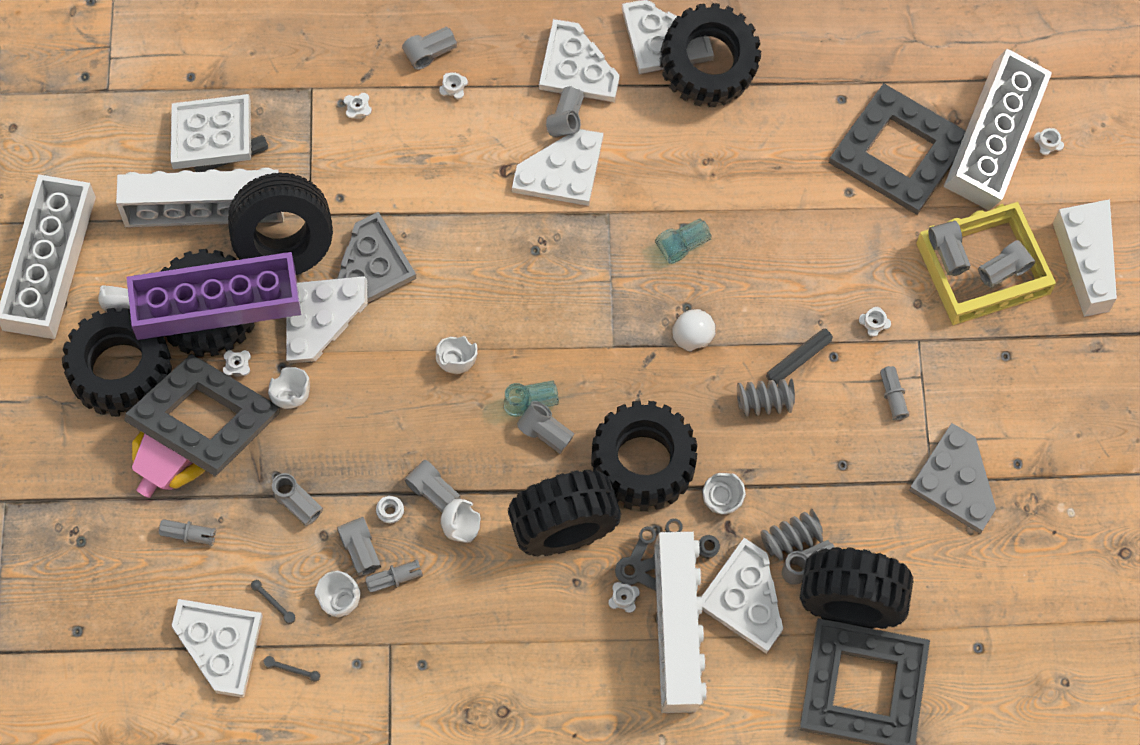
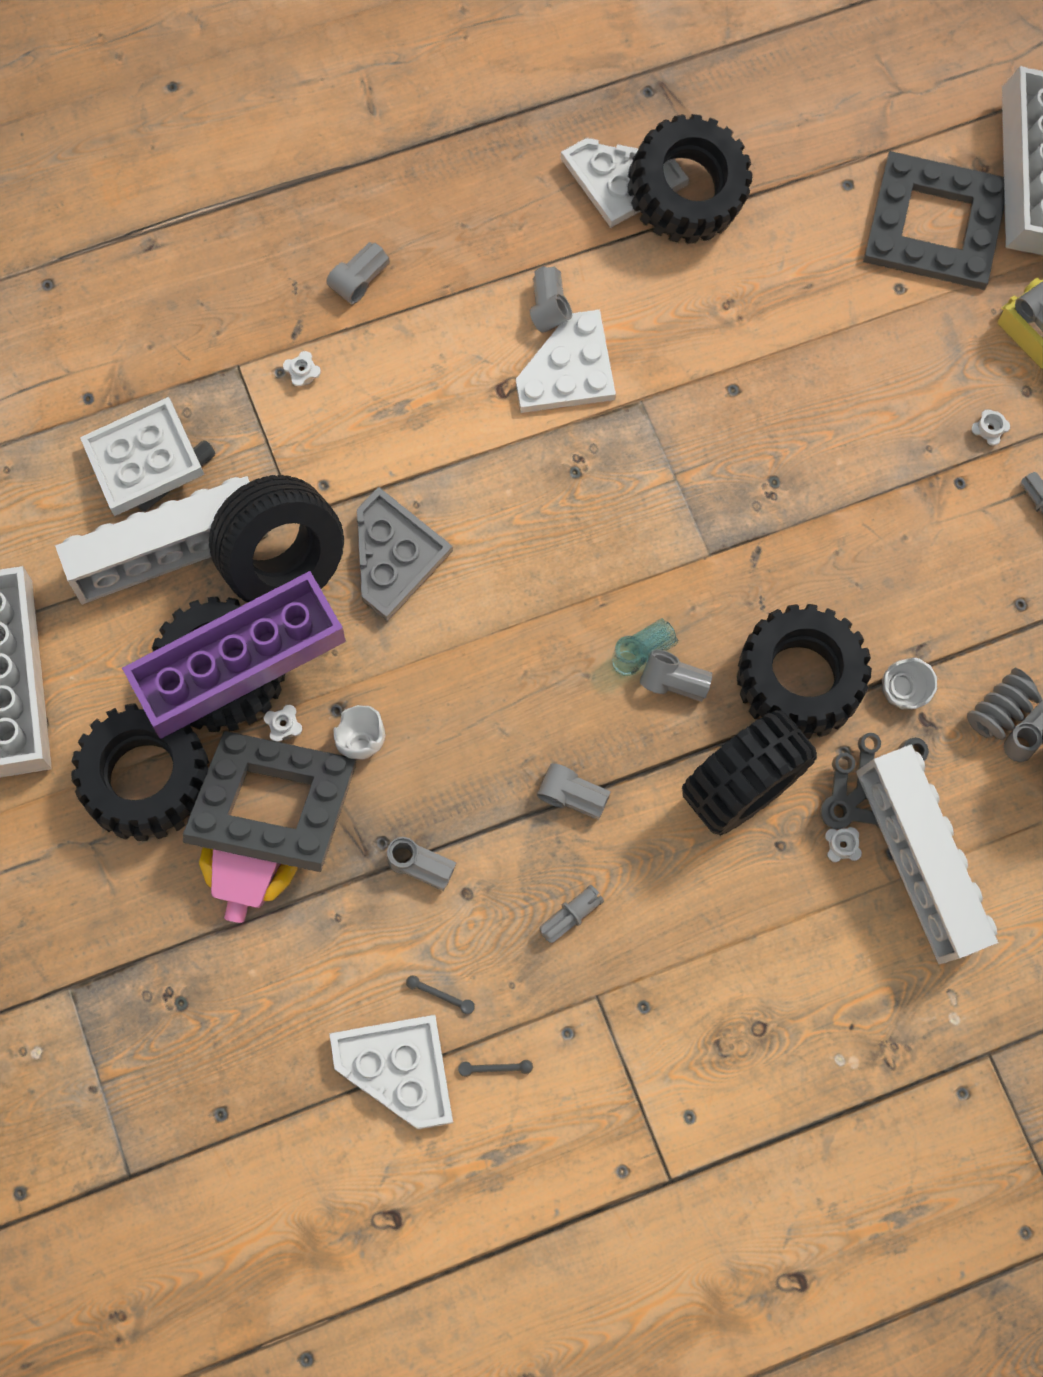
camera: 20 degrees left, 5 degrees up
(113, 298) = (109, 694): white hair -> none
(187, 532) = (306, 947): light grey axle -> none
(325, 313) = (370, 626): white plate -> none
(337, 593) = (516, 959): white hair -> none
(357, 541) = (510, 885): light grey piece -> none
(390, 501) = (533, 825): white plate -> none
(453, 79) = (401, 301): white plate -> none
(456, 354) = (538, 626): white hair -> none
(460, 521) = (623, 822): white hair -> none
(576, 63) = (536, 238): white plate -> none
(677, 243) = (736, 410): clear light blue piece -> none
(694, 329) = (794, 505): white hair -> none
(746, 597) = (982, 795): white plate -> none
(766, 397) = (909, 554): light grey piece -> none
(800, 356) = (924, 496): dark grey axle -> none

